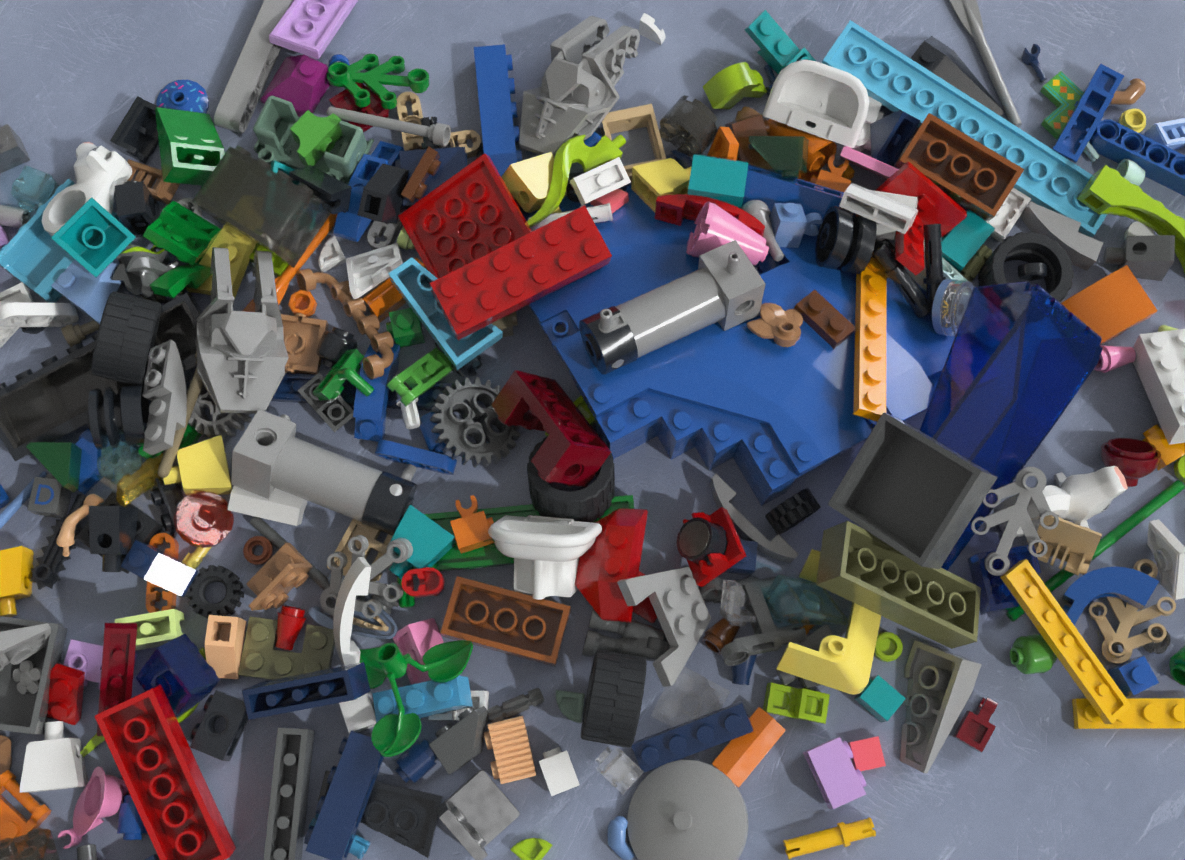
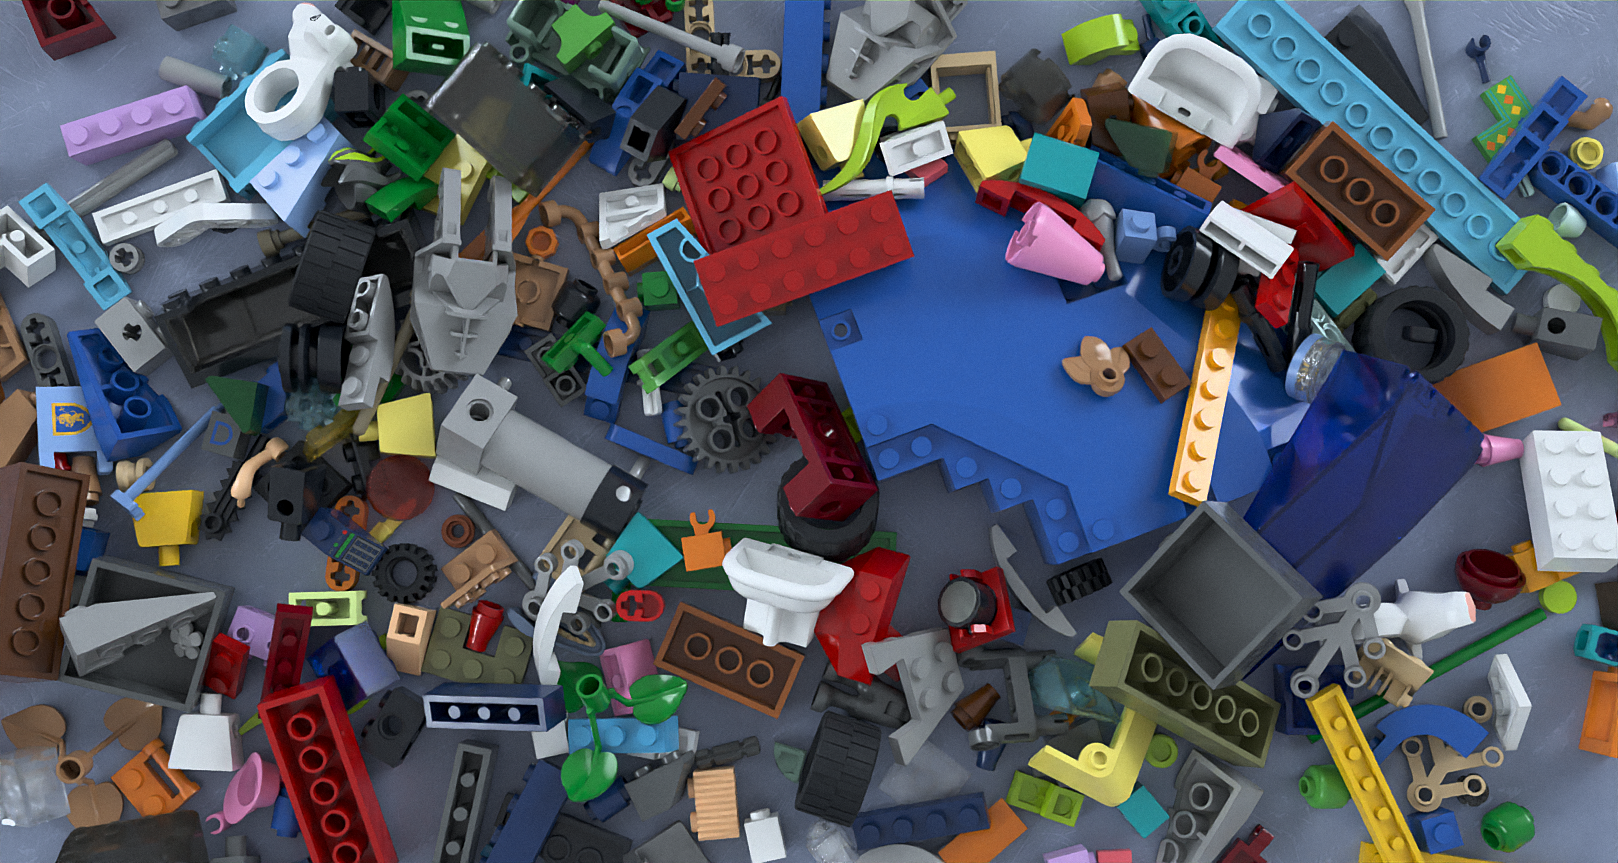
camera: 15 degrees right, 10 degrees up
(93, 237) = (304, 137): teal slope -> none
(331, 255) = (582, 185): white tile -> none
(720, 291) = (1034, 320): light grey piece -> none
(732, 599) = (991, 681): clear bracket -> none

